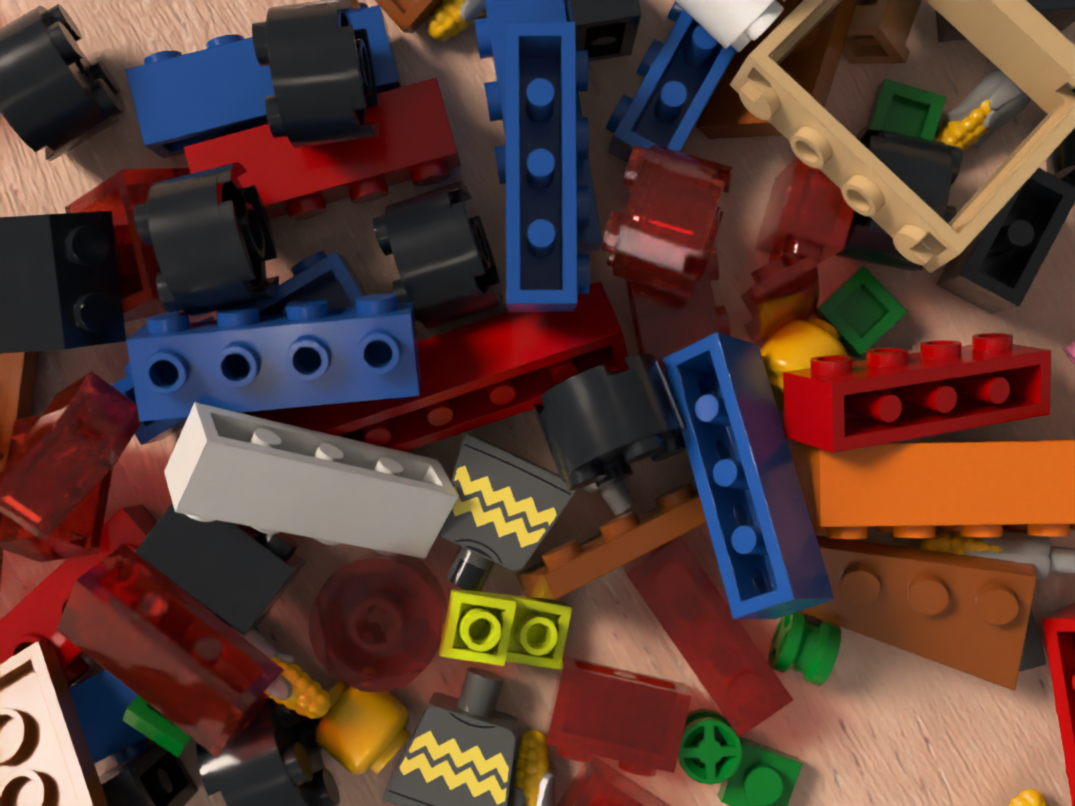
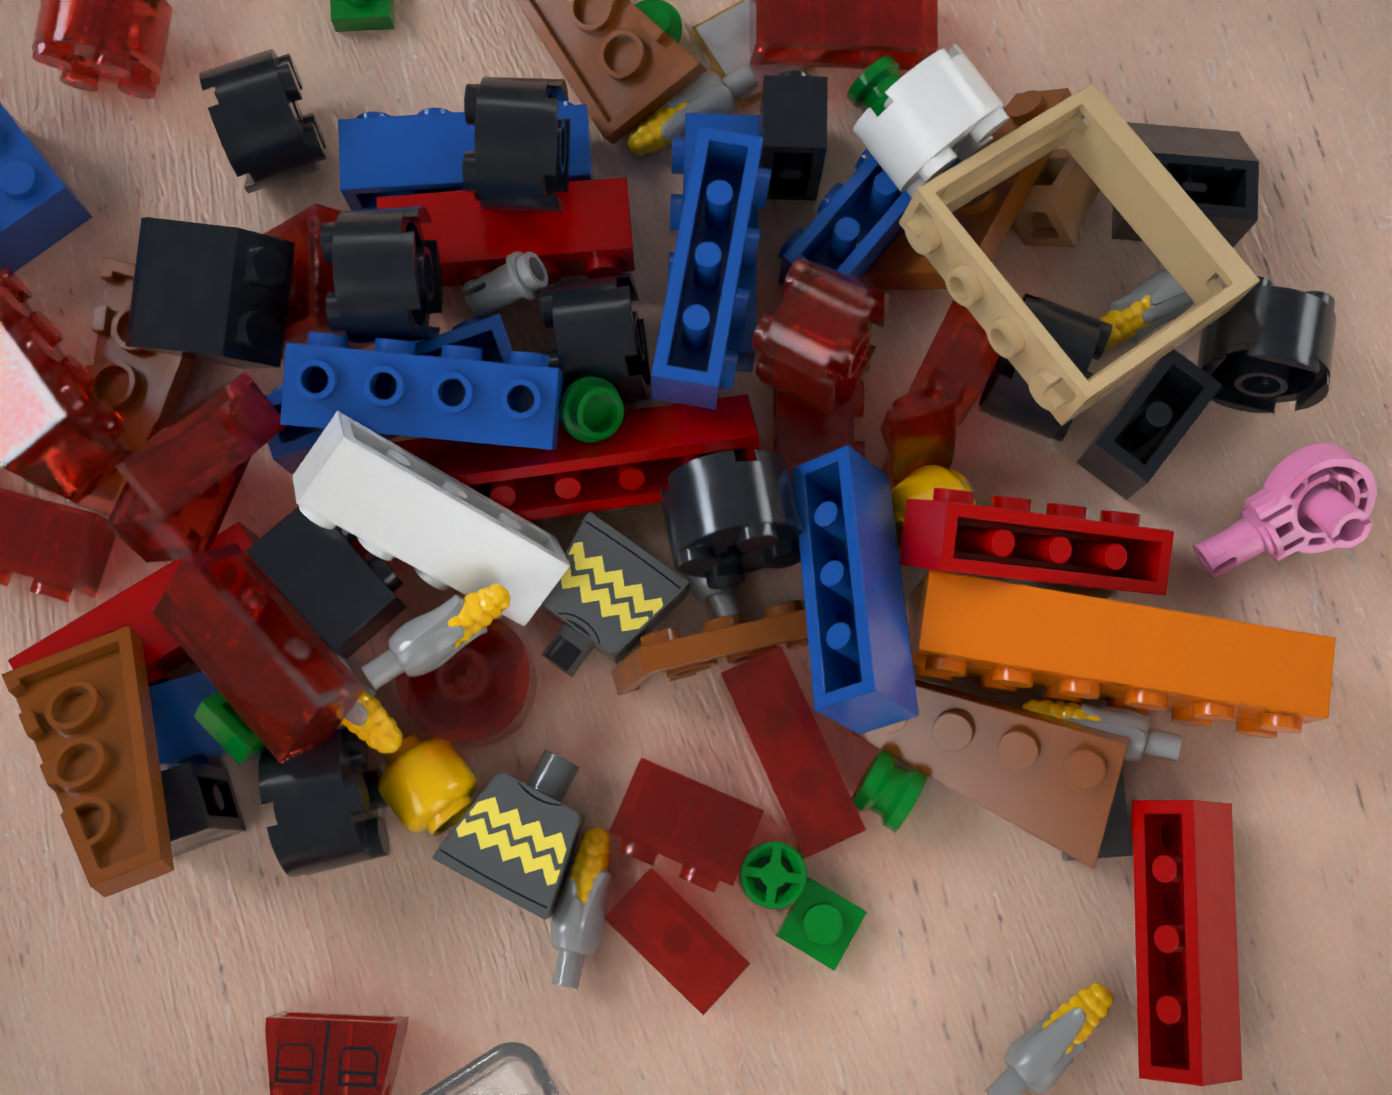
camera: 10 degrees right, 10 degrees down
(343, 596) = (437, 635): none -> light grey piece
(346, 209) = (517, 279): none -> light grey pin
(449, 336) = (591, 409): none -> green plate
(505, 629) = (590, 714): neon yellow slope -> none
(860, 311) = (997, 468): green plate -> none
(906, 110) = (1072, 288): green plate -> none

